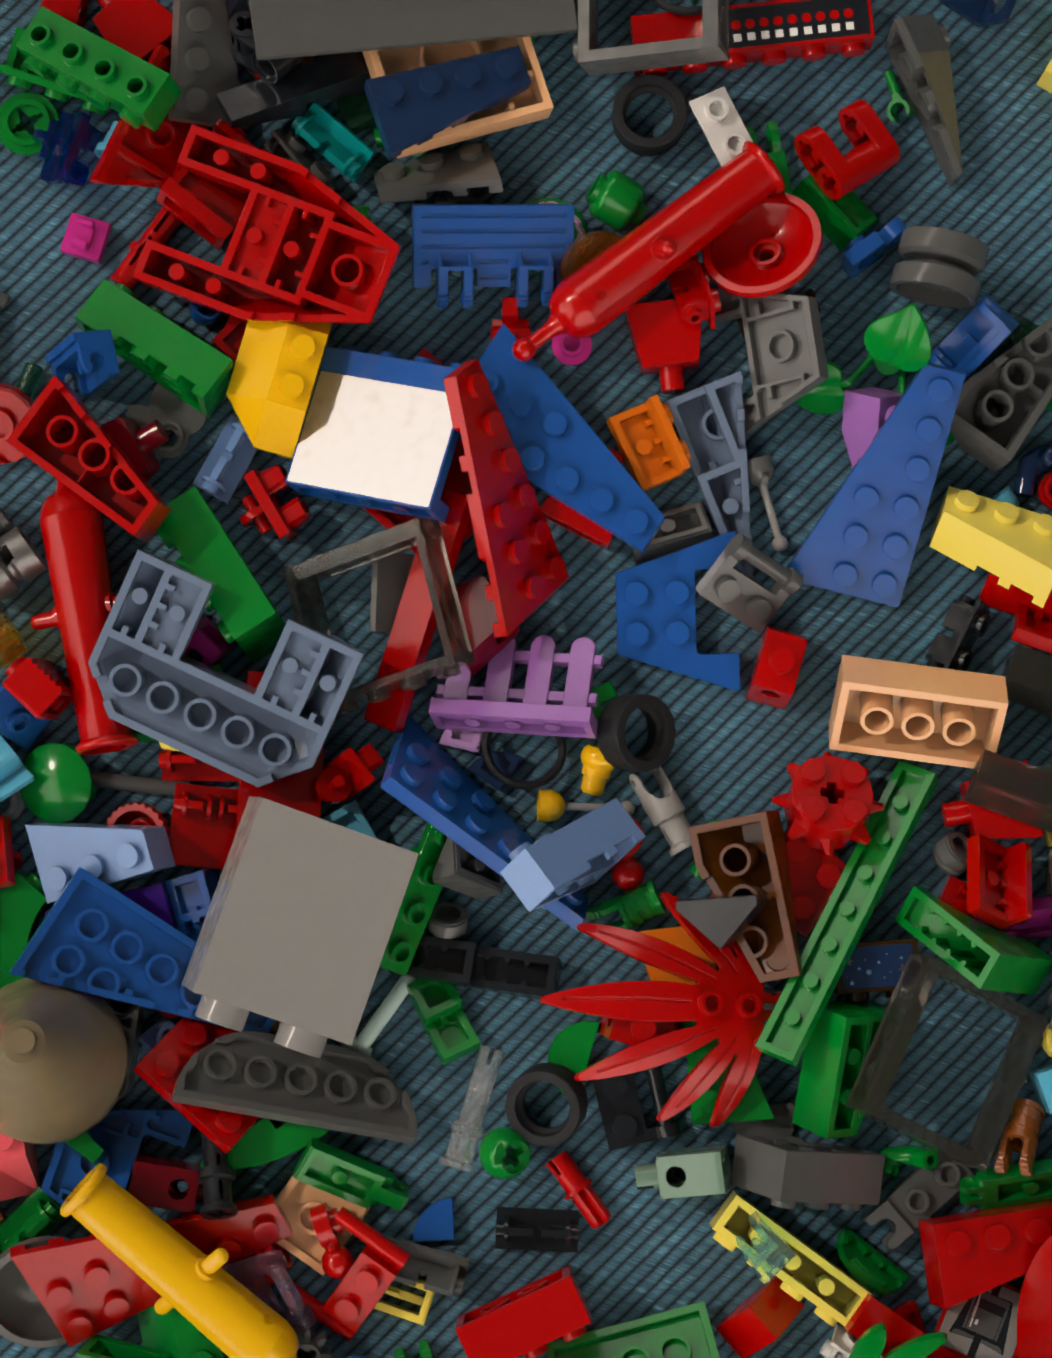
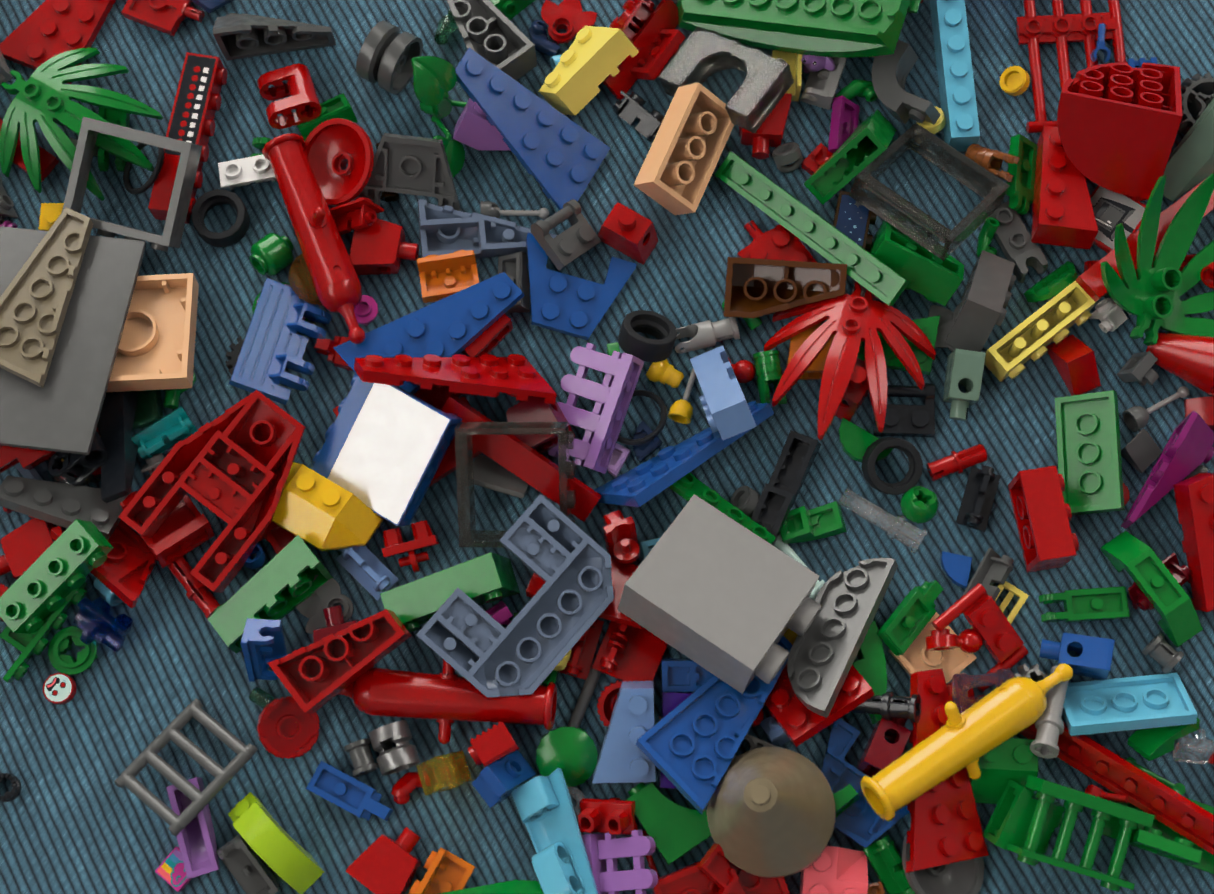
camera: 75 degrees left, 10 degrees down
(86, 238) = (172, 630): dark pink tile -> none
(431, 98) = (159, 343): dark blue wing -> none
(450, 171) = (213, 355): dark grey wing -> none
(465, 873) = (713, 474): dark grey slope -> none
(722, 917) = (792, 303): black slope -> none
(769, 1253) = (1033, 329): clear light blue hinge -> none
(828, 802) = (731, 222): red brick -> none
(865, 251) = (361, 106): blue plate -> none
(897, 98) = (265, 59): green hand -> none
(975, 337) = (442, 41): blue hinge -> none
(999, 881) = (816, 126): red bracket -> none

